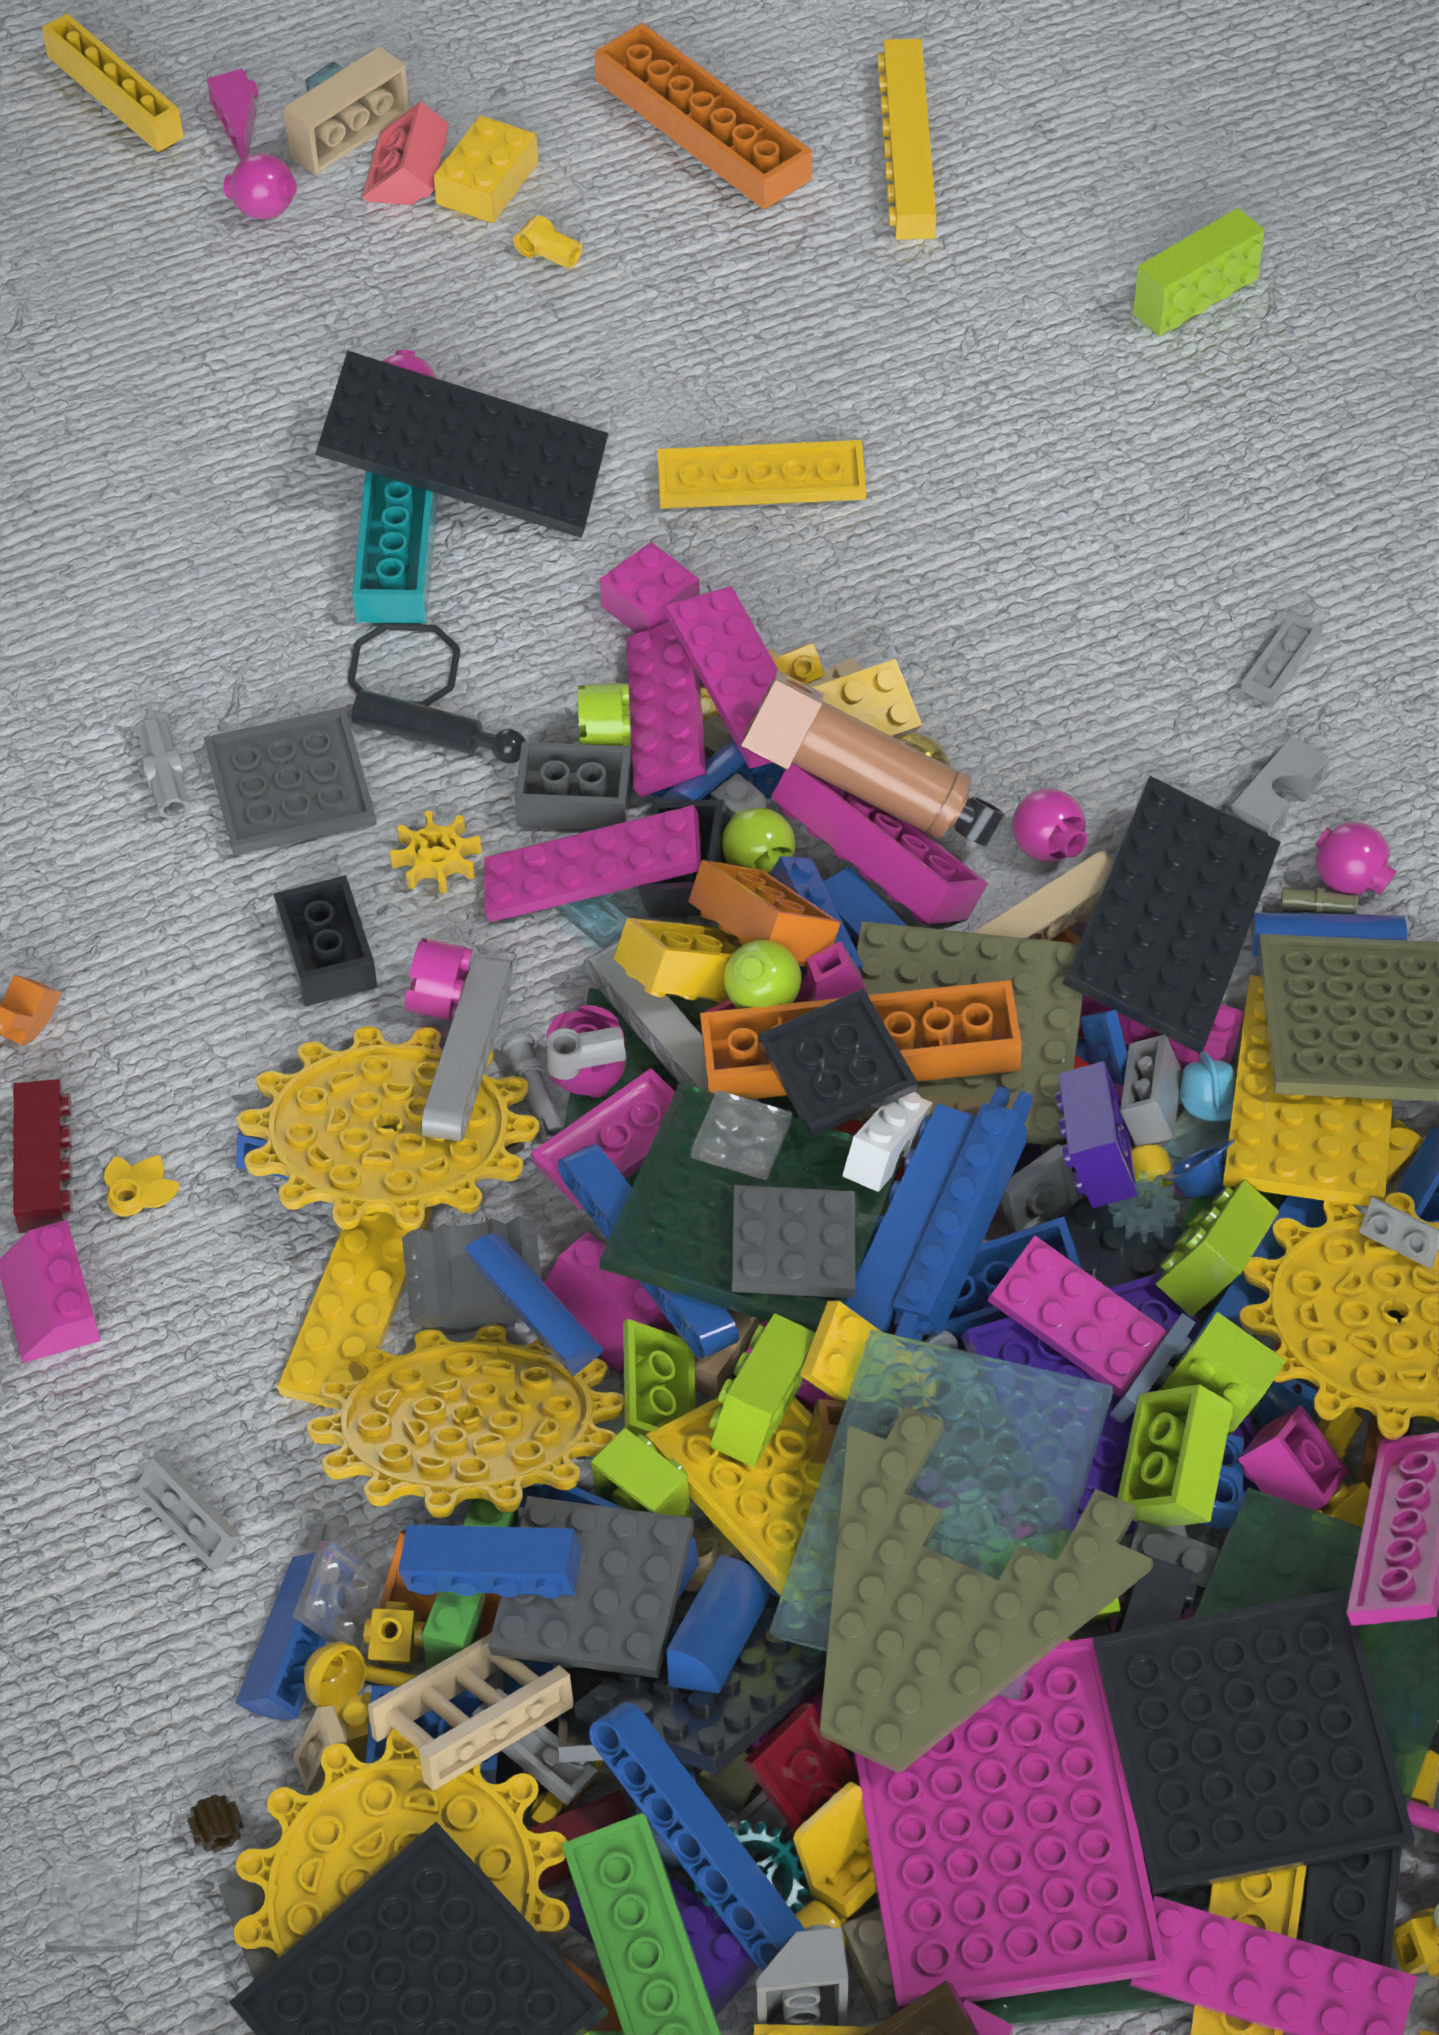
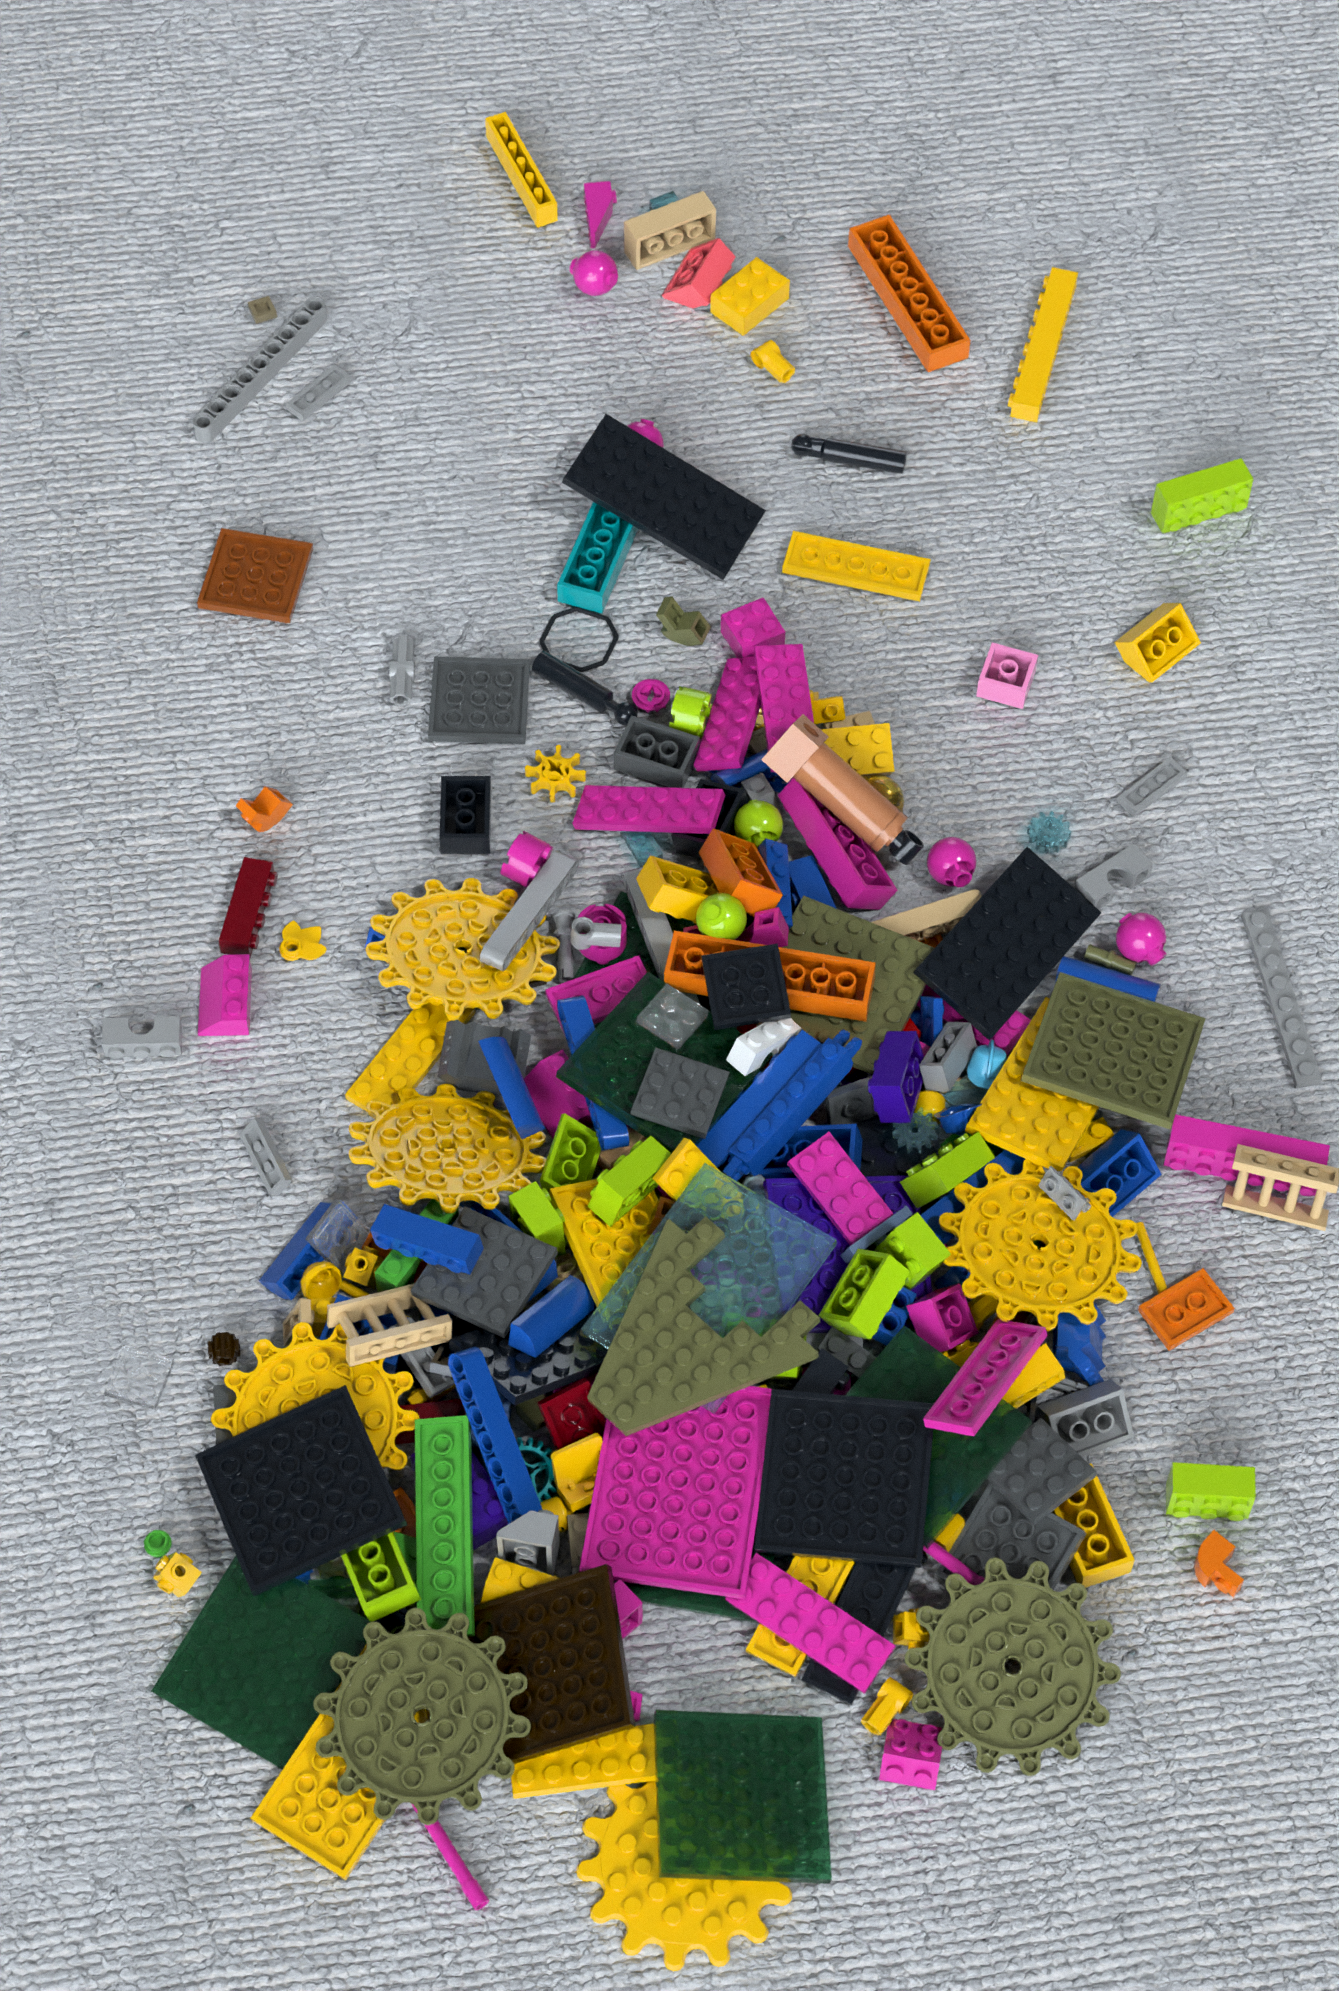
camera: 15 degrees right, 5 degrees up
(546, 704) = (642, 691): none -> dark pink gear
(548, 611) = (682, 626): none -> olive brick
(698, 333) = (850, 453): none -> black piece
(1027, 562) = (1007, 675): none -> bright pink brick
(1166, 753) = (1049, 832): none -> clear light blue gear
(1213, 469) = (1158, 641): none -> yellow slope

